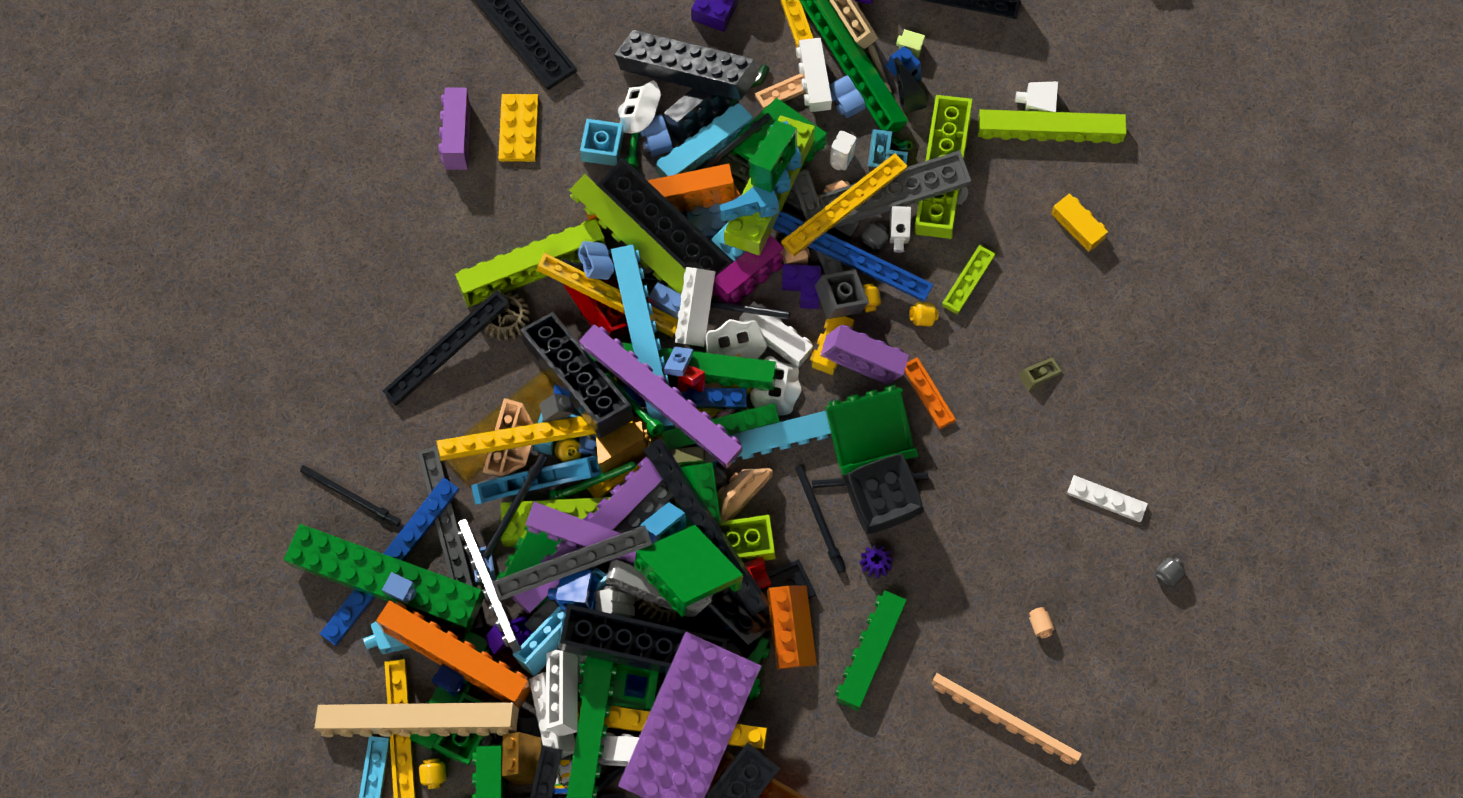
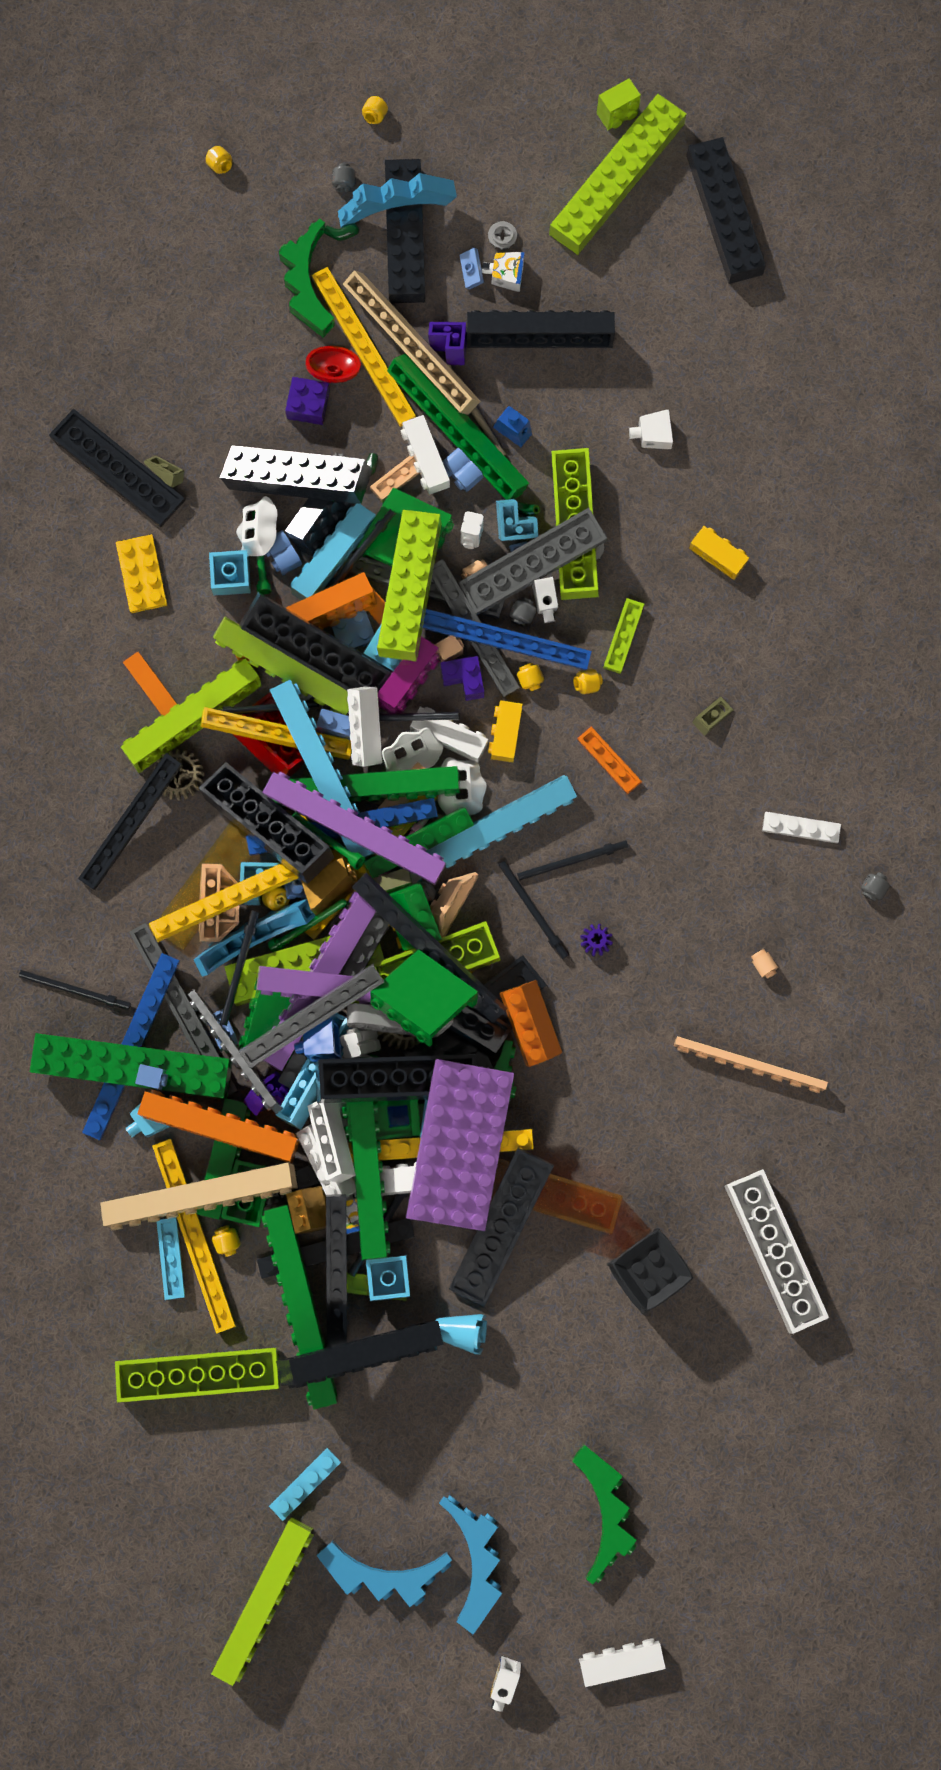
camera: 15 degrees left, 10 degrees up
(448, 681) = (220, 1152): clear blue brick -> none
(455, 128) = (79, 591): medium lavender brick -> none
(498, 225) = (149, 683): none -> orange tile
(556, 408) = (255, 862): dark grey brick -> none
(566, 42) = (166, 471): none -> olive slope
(595, 260) = (256, 701): medium blue brick -> none
(665, 522) = (388, 954): dark azure brick -> none
(678, 361) = (363, 788): medium blue plate -> none
(692, 378) = (379, 801): red panel -> none
(757, 570) = (487, 978): red panel -> none
(760, 200) = (415, 584): dark azure arch -> none
(773, 155) = (409, 562): green brick -> none
(841, 294) = (505, 682): dark grey brick -> none
(844, 205) = (487, 589): yellow plate -> none
(864, 354) = (541, 739): medium lavender brick -> none
(869, 428) = (563, 813): green panel -> none
(870, 651) = (611, 1027): green brick -> none
(884, 493) = (591, 875): black piece -> none
(911, 94) = (525, 453): black slope -> none
(912, 41) = (513, 397): yellowish green brick -> none
(1051, 125) = (671, 456): lime brick -> none

